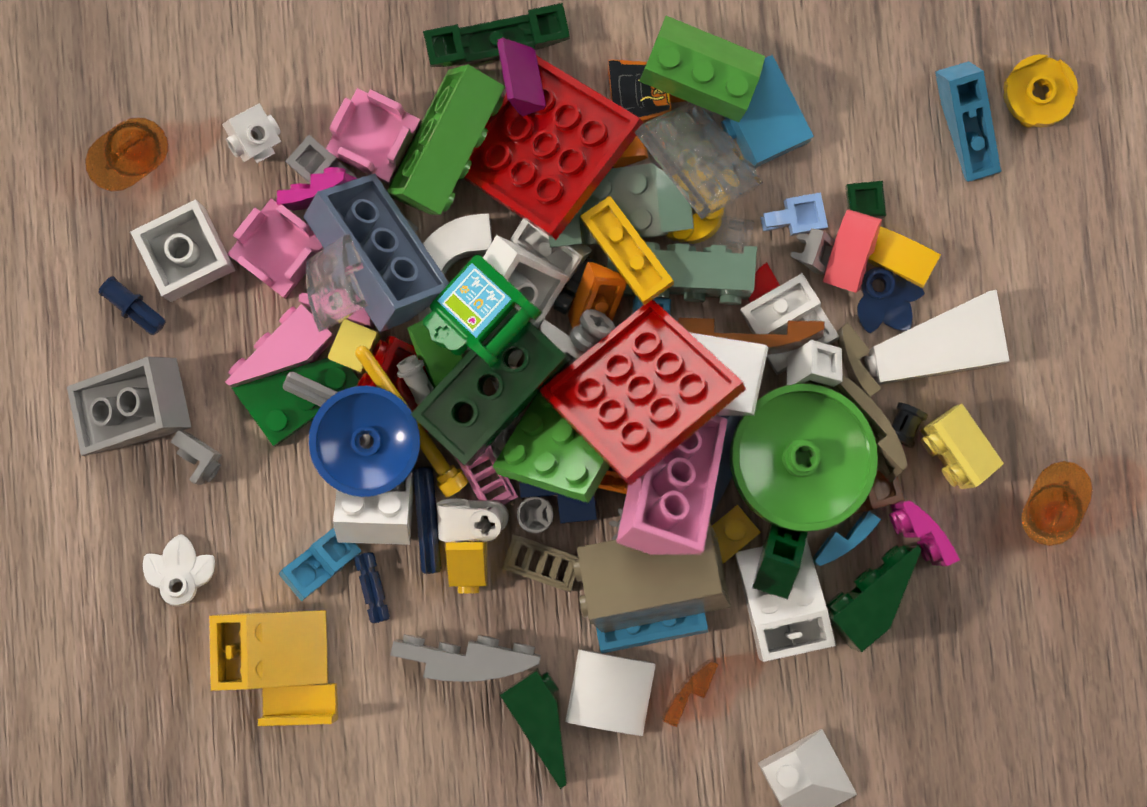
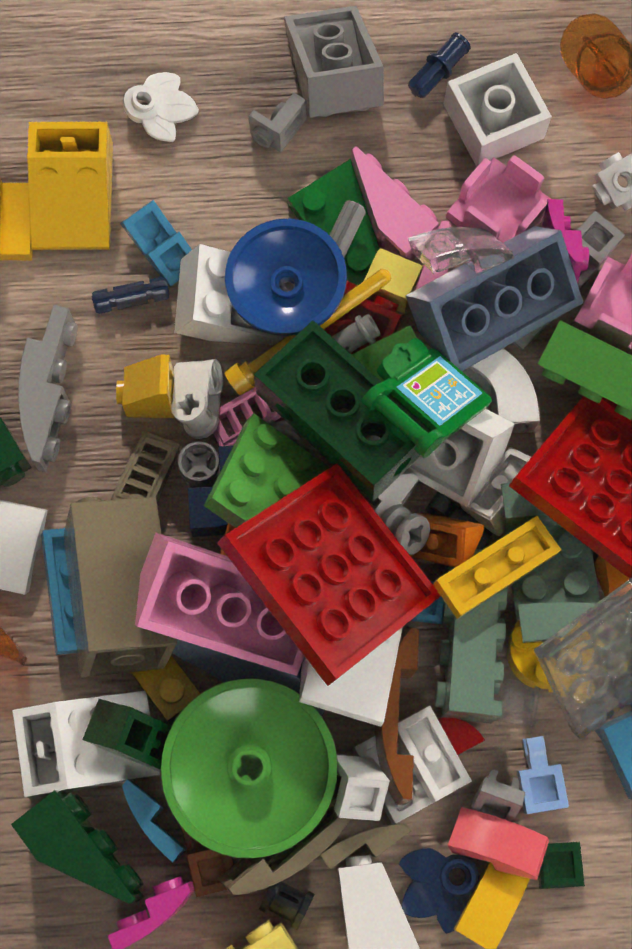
camera: 85 degrees right, 10 degrees down
(427, 520) = (224, 351): dark blue axle -> none

